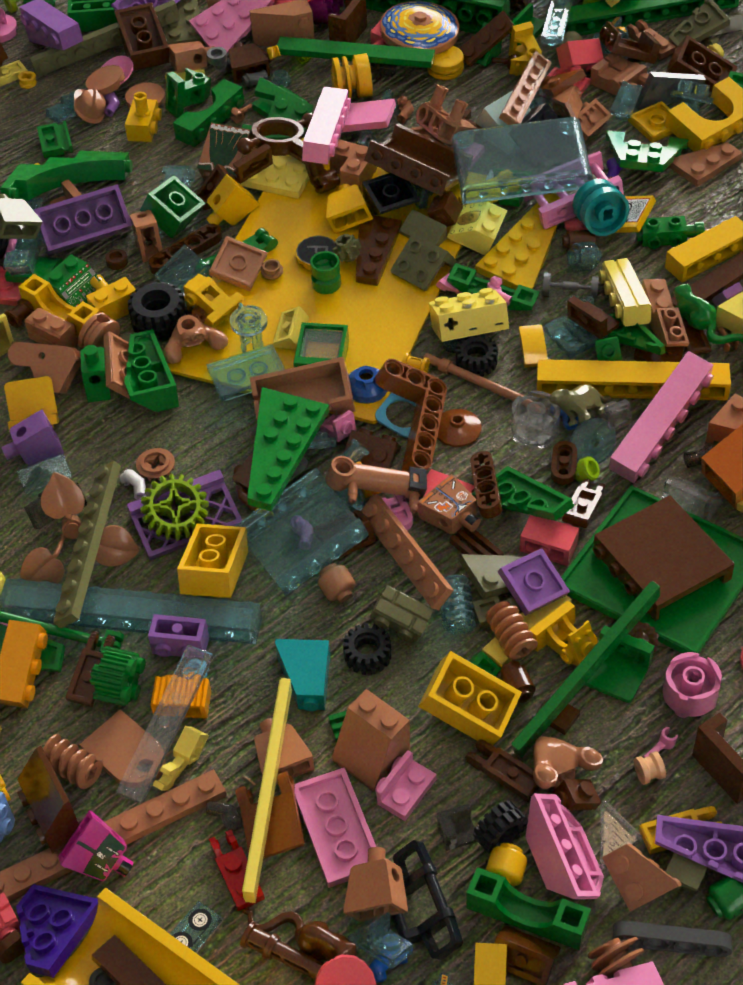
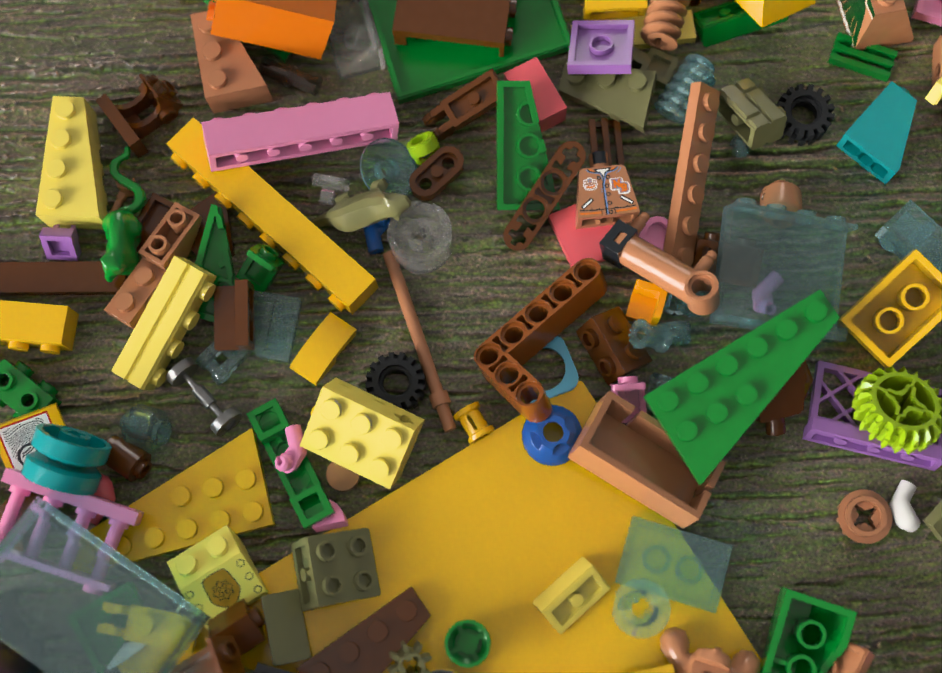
camera: 140 degrees left, 25 degrees up
(321, 343) = (569, 517): window -> none
(459, 428) = (477, 306): dark orange dish -> none

